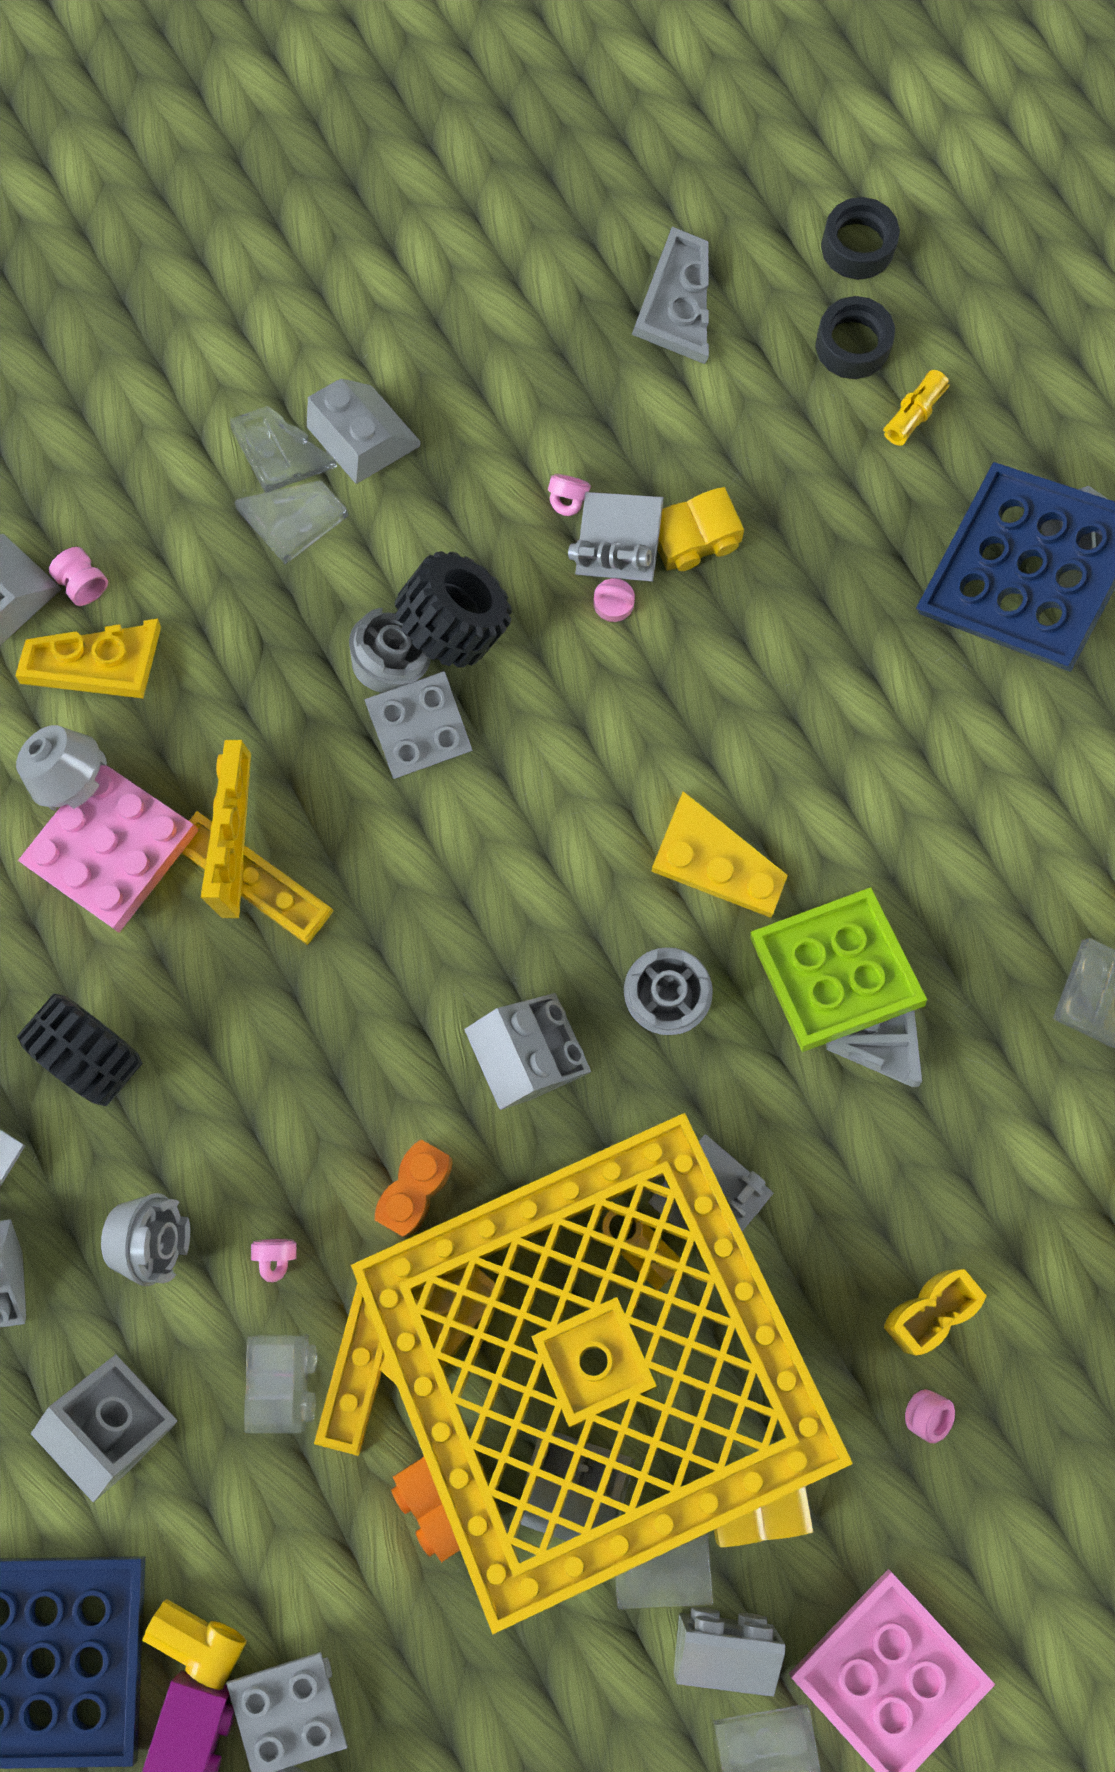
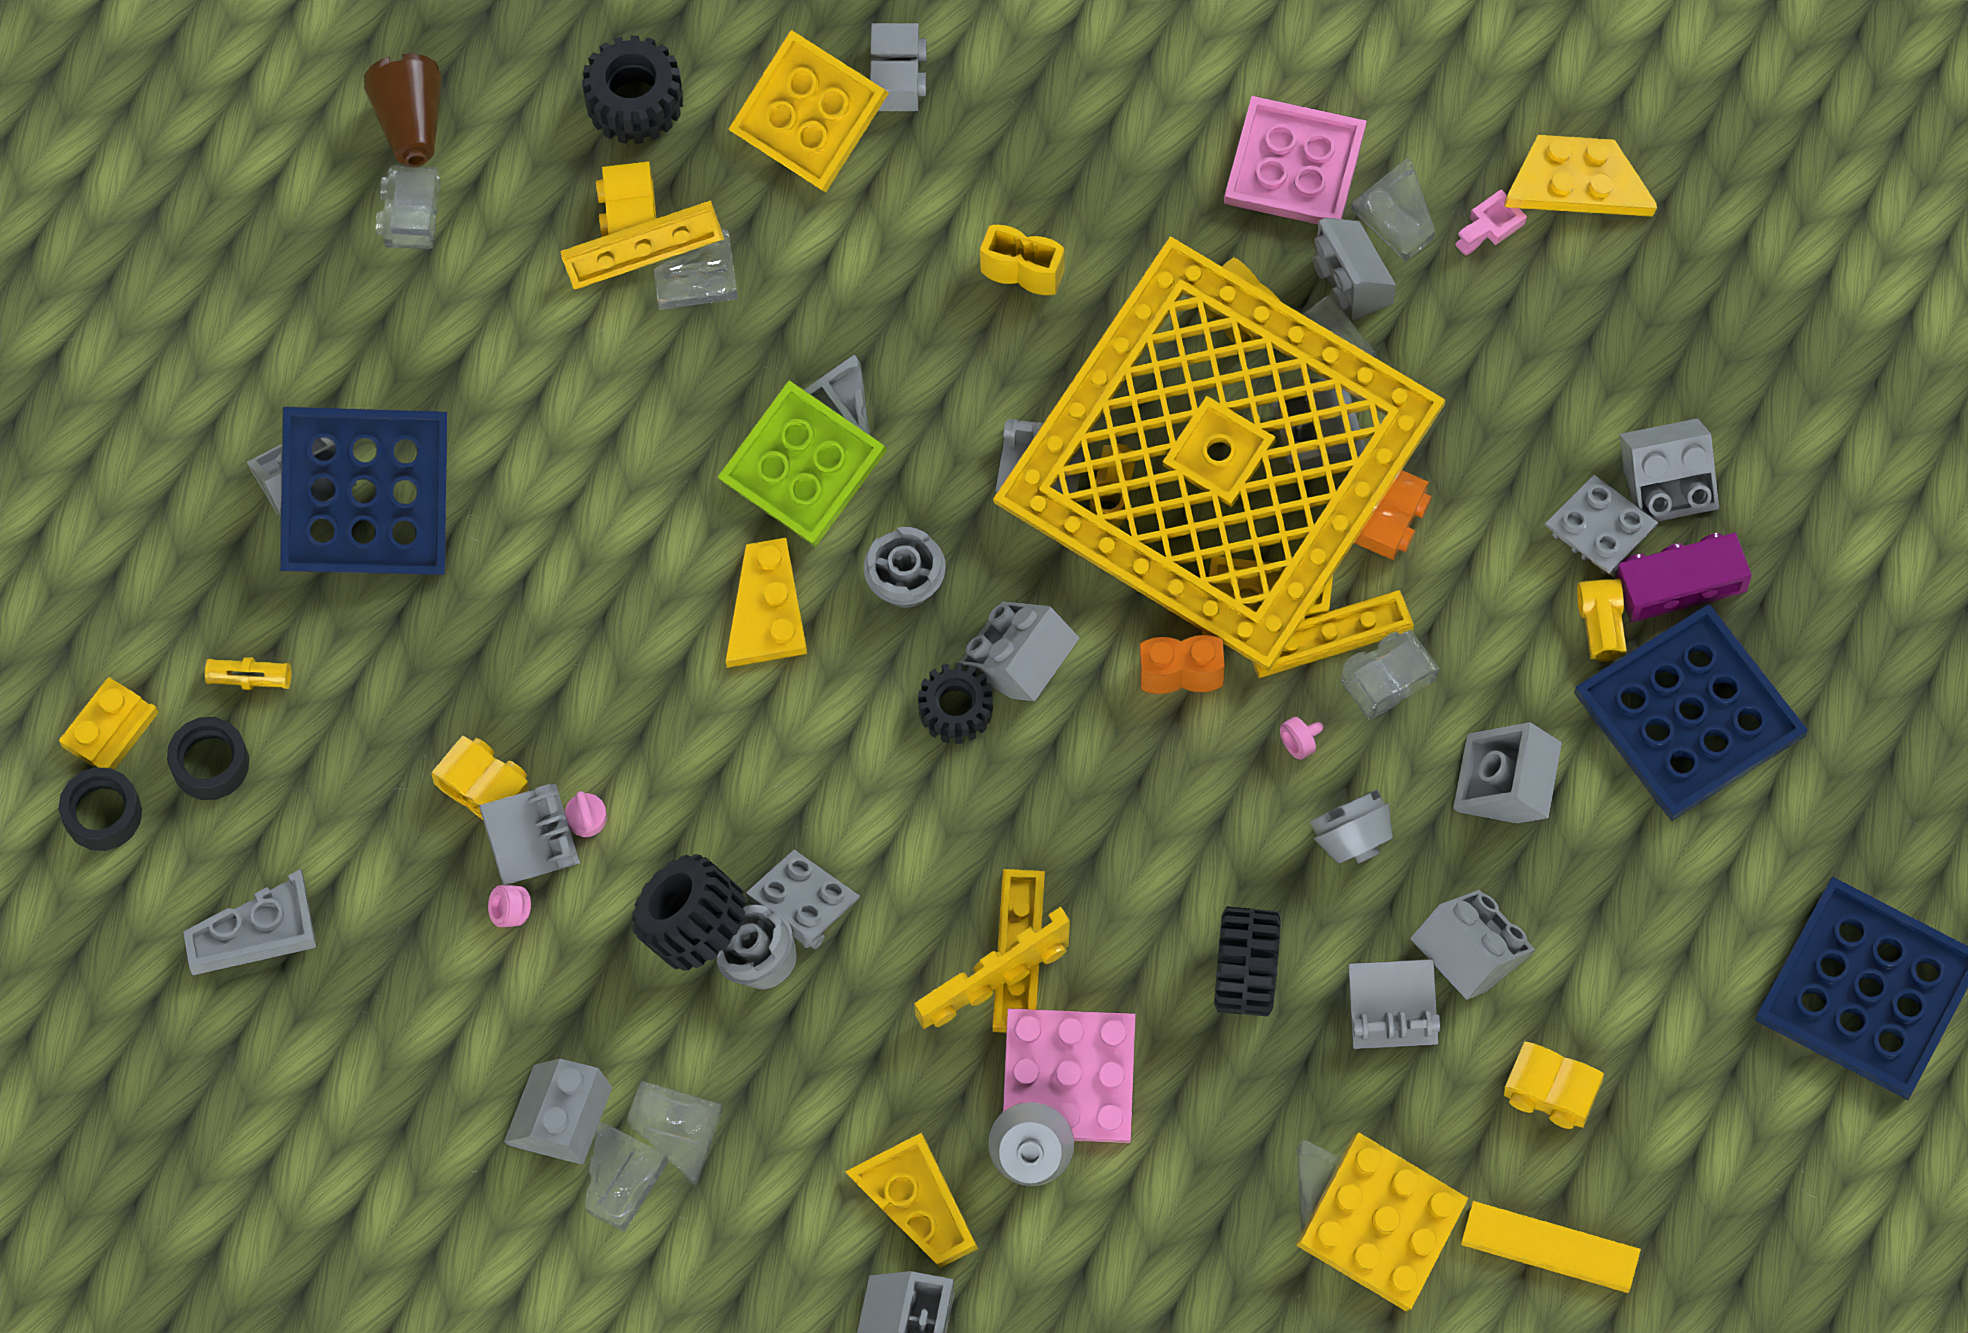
camera: 120 degrees left, 10 degrees down
(81, 580) = (850, 1262): bright pink wheel -> none
(513, 937) = (955, 680): none -> black tyre
(929, 1415) = (1098, 226): bright pink tile -> none
(935, 285) = (108, 725): none -> yellow plate

